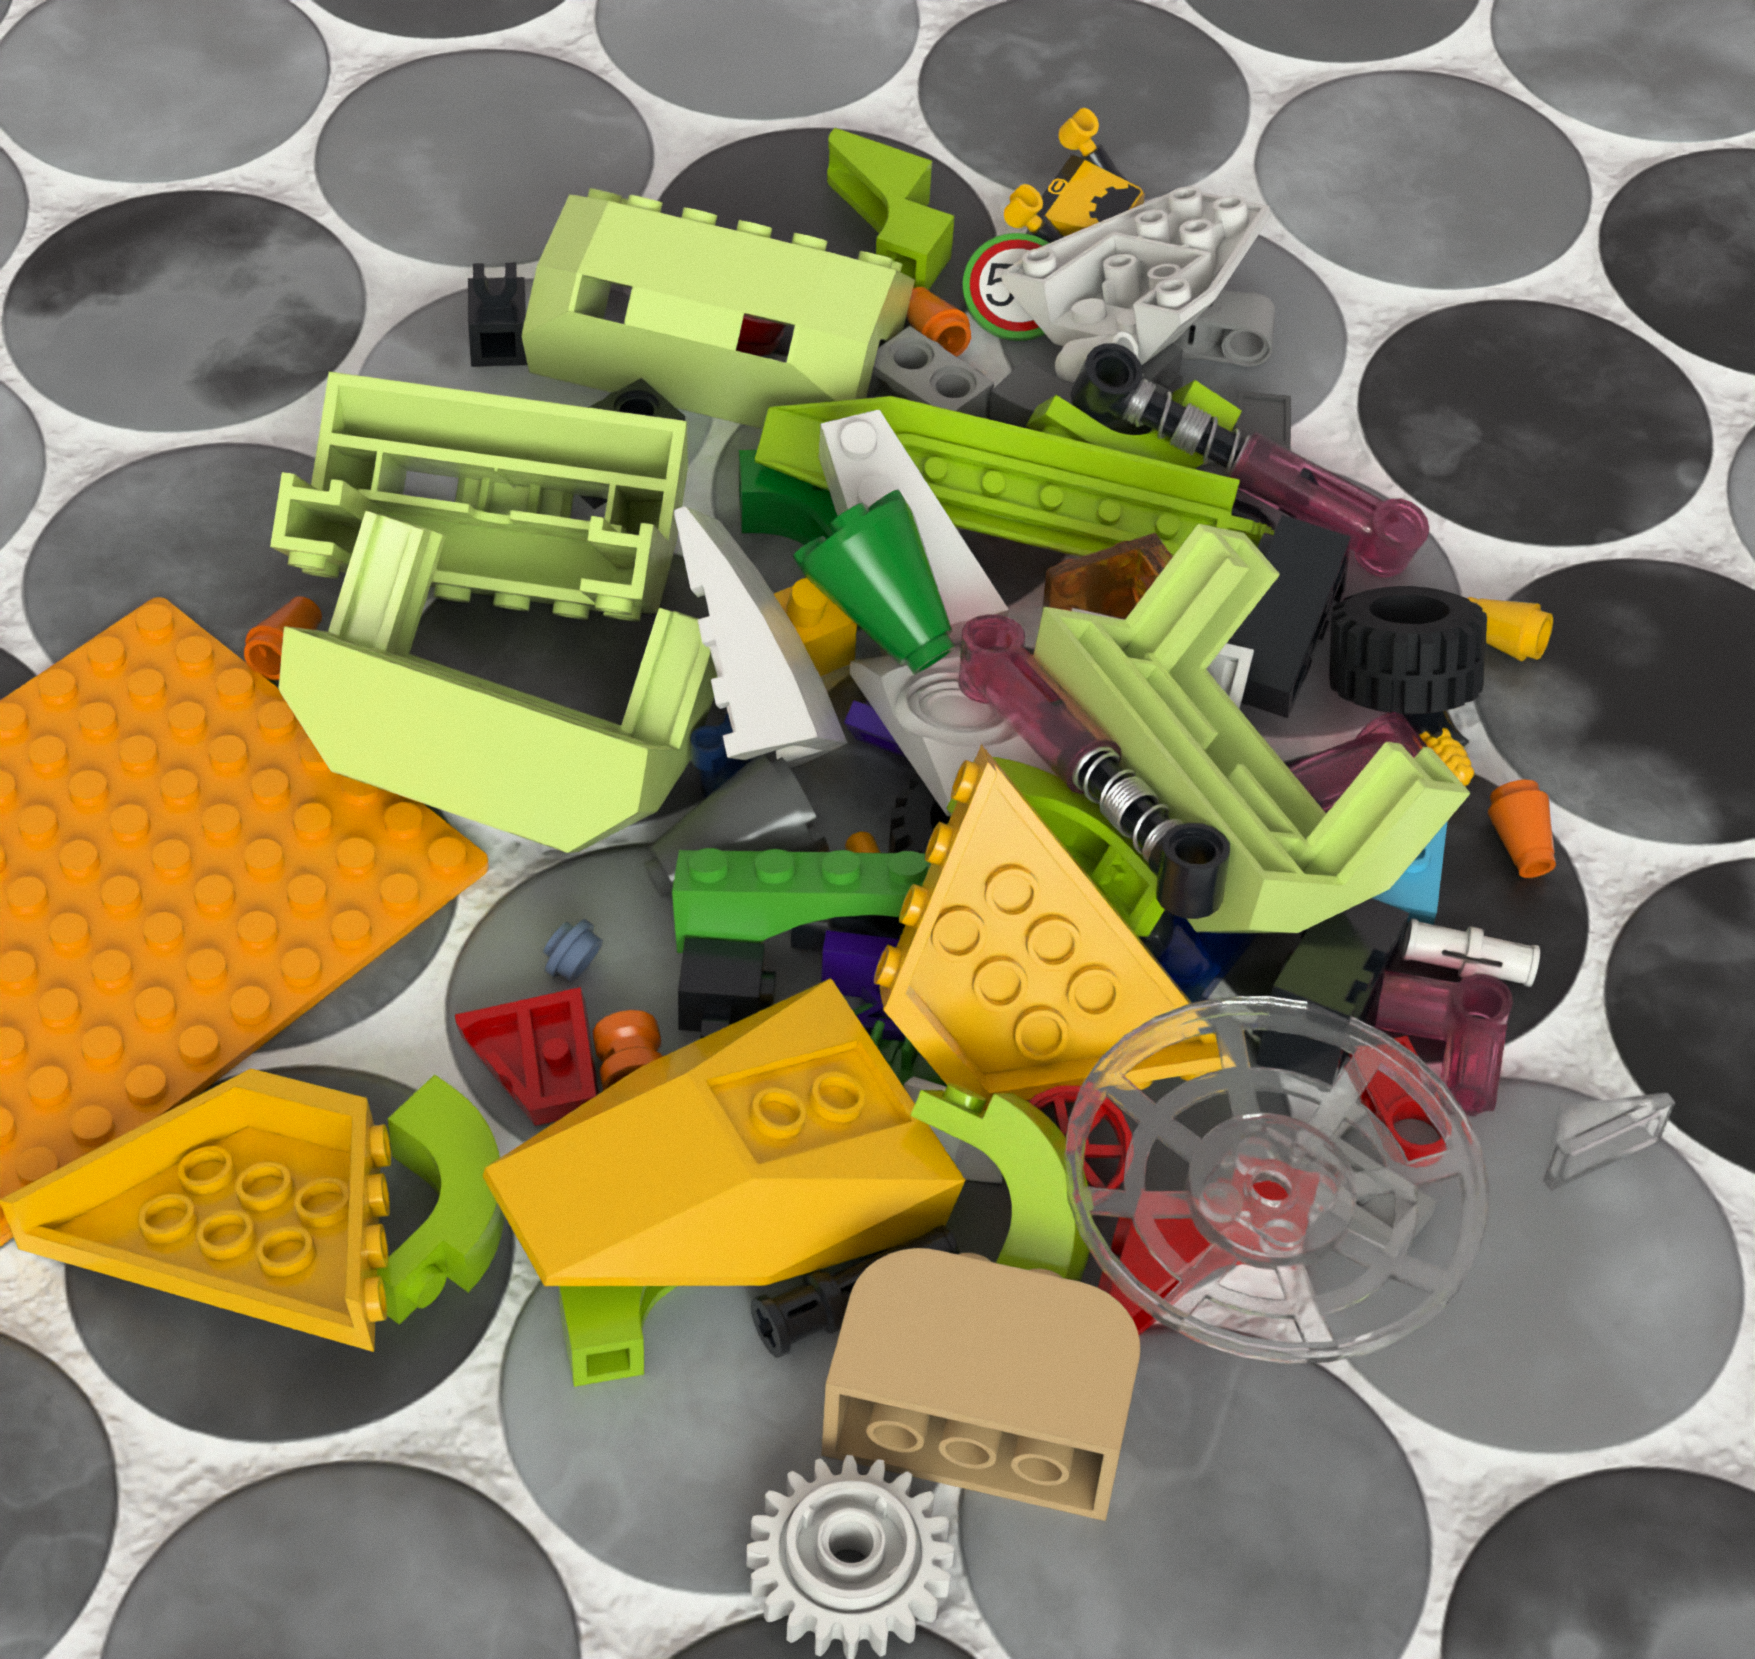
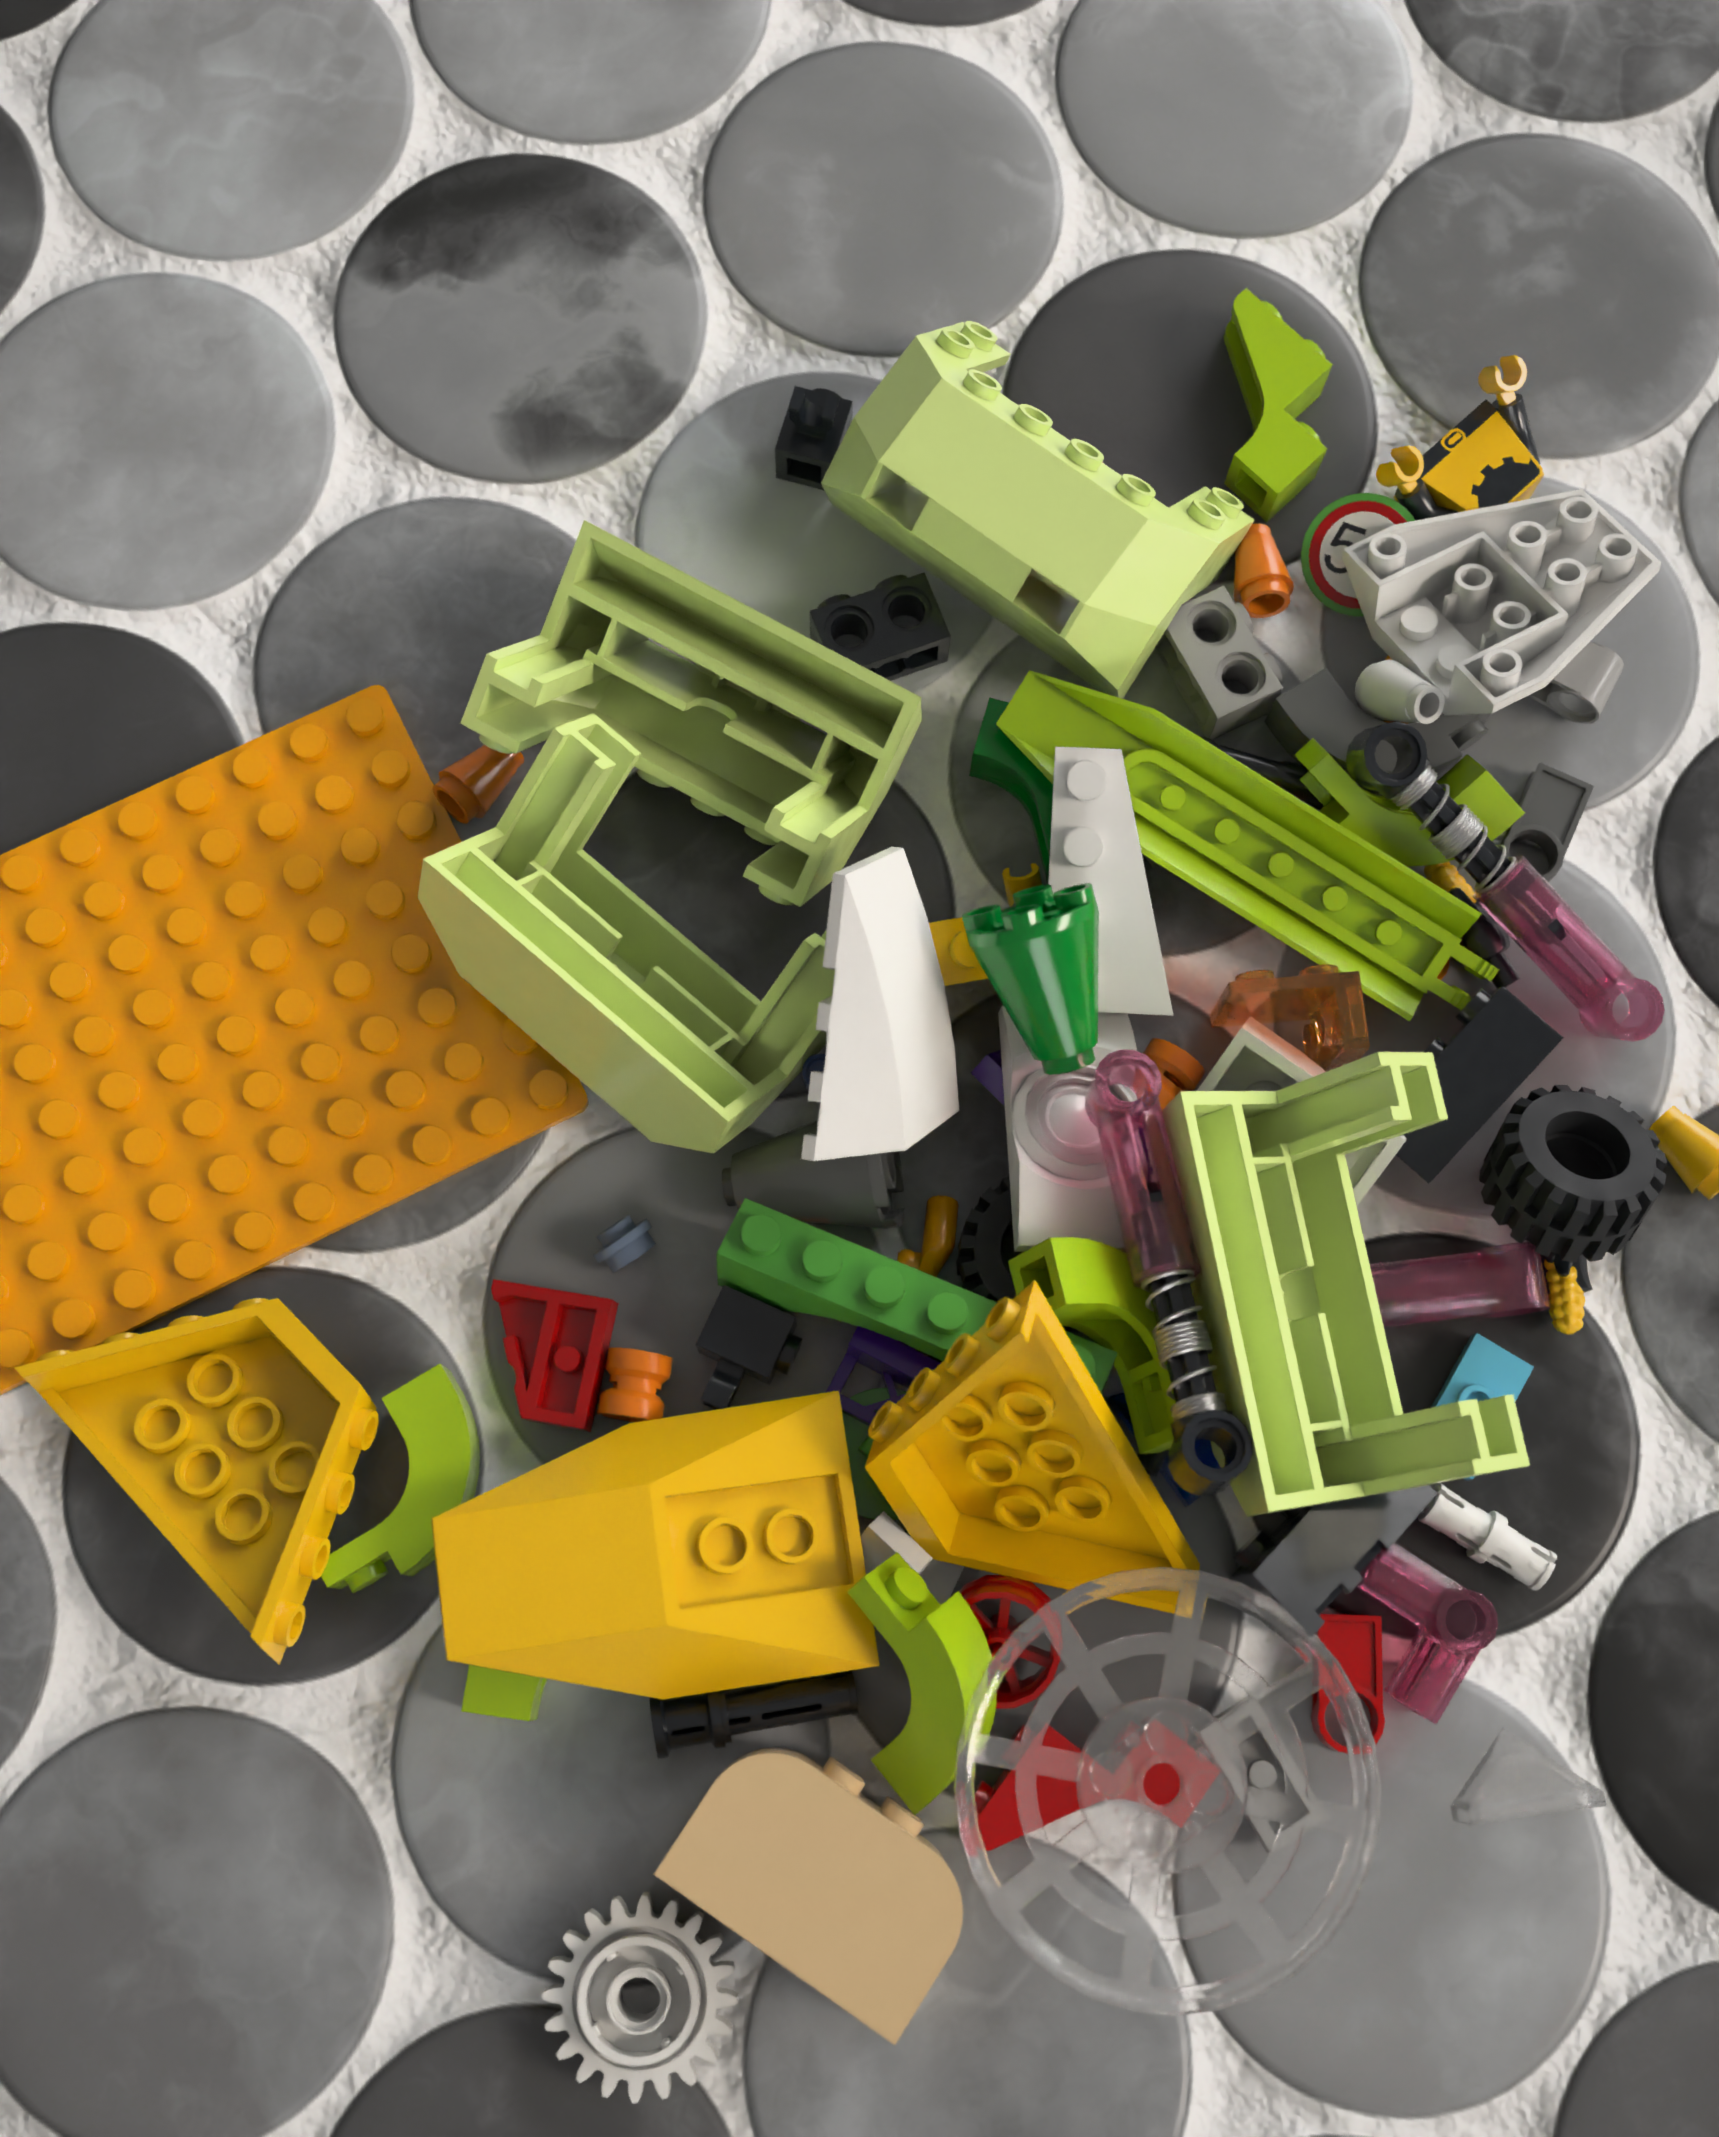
camera: 20 degrees right, 25 degrees up
(1524, 825) = (1606, 1408): orange cone -> none

